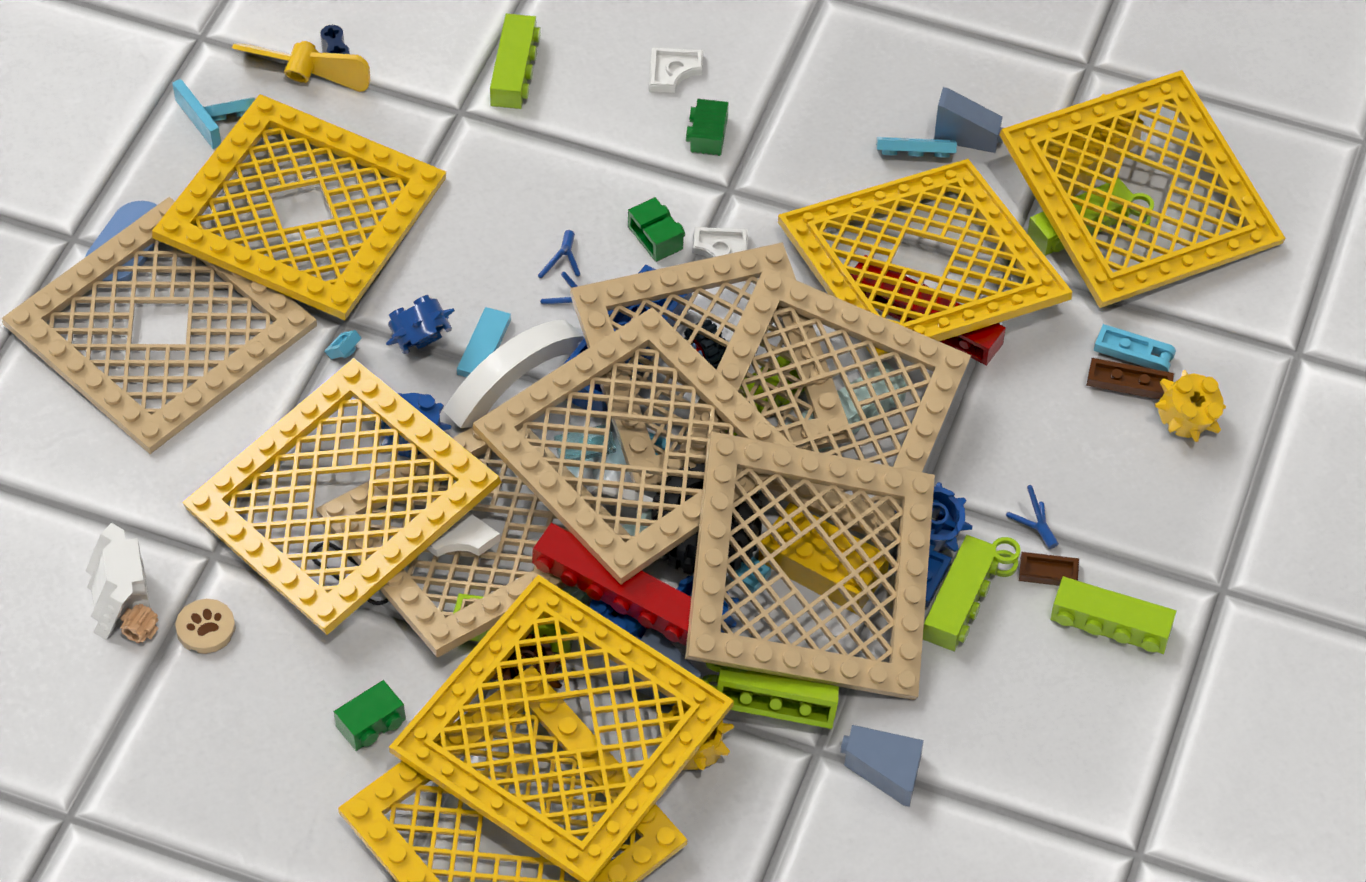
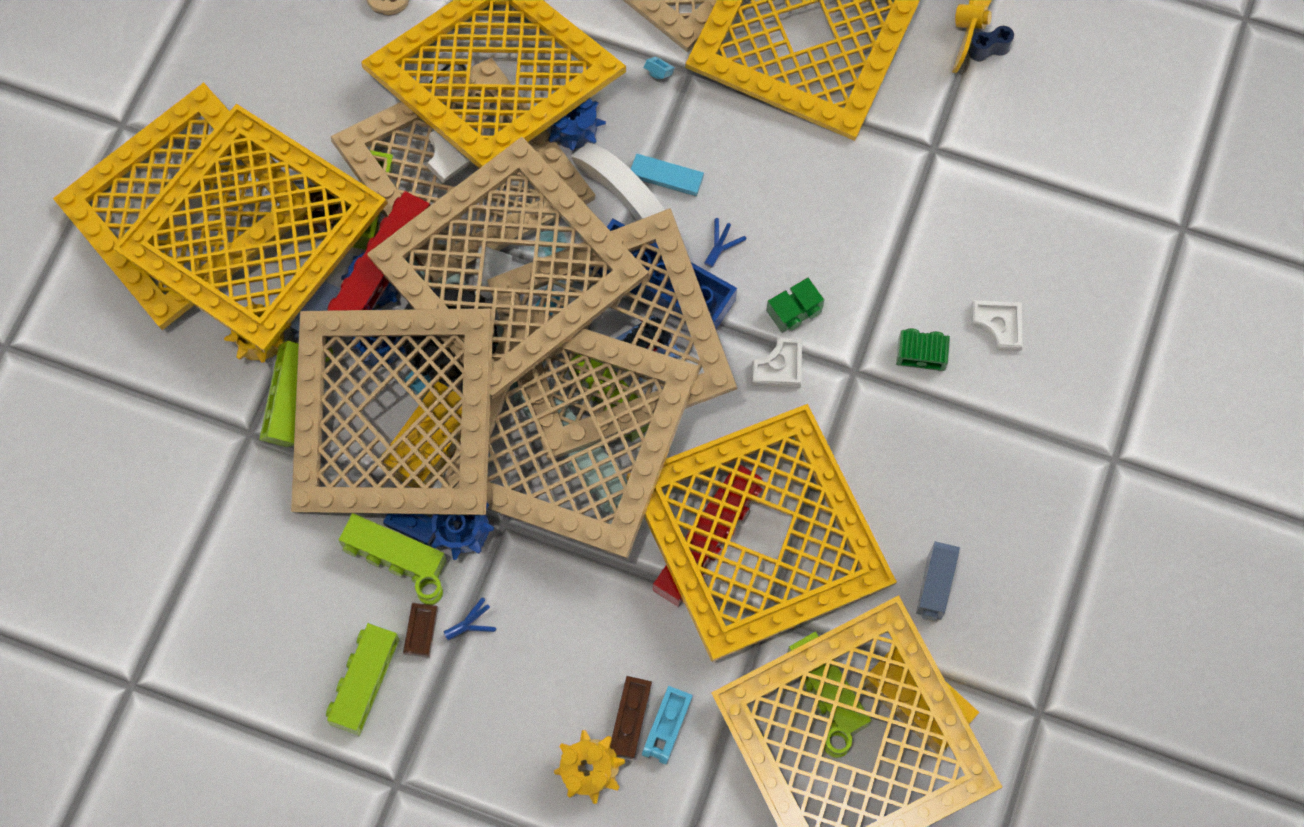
camera: 90 degrees right, 15 degrees up
(370, 714) = (295, 105): green piece -> none
(419, 324) = (669, 115): blue brick -> none
(514, 61) = (991, 185): lime brick -> none
(566, 247) = (773, 234): blue plant -> none
(884, 760) = (227, 481): sand blue slope -> none
(915, 146) = (911, 535): medium azure plate -> none

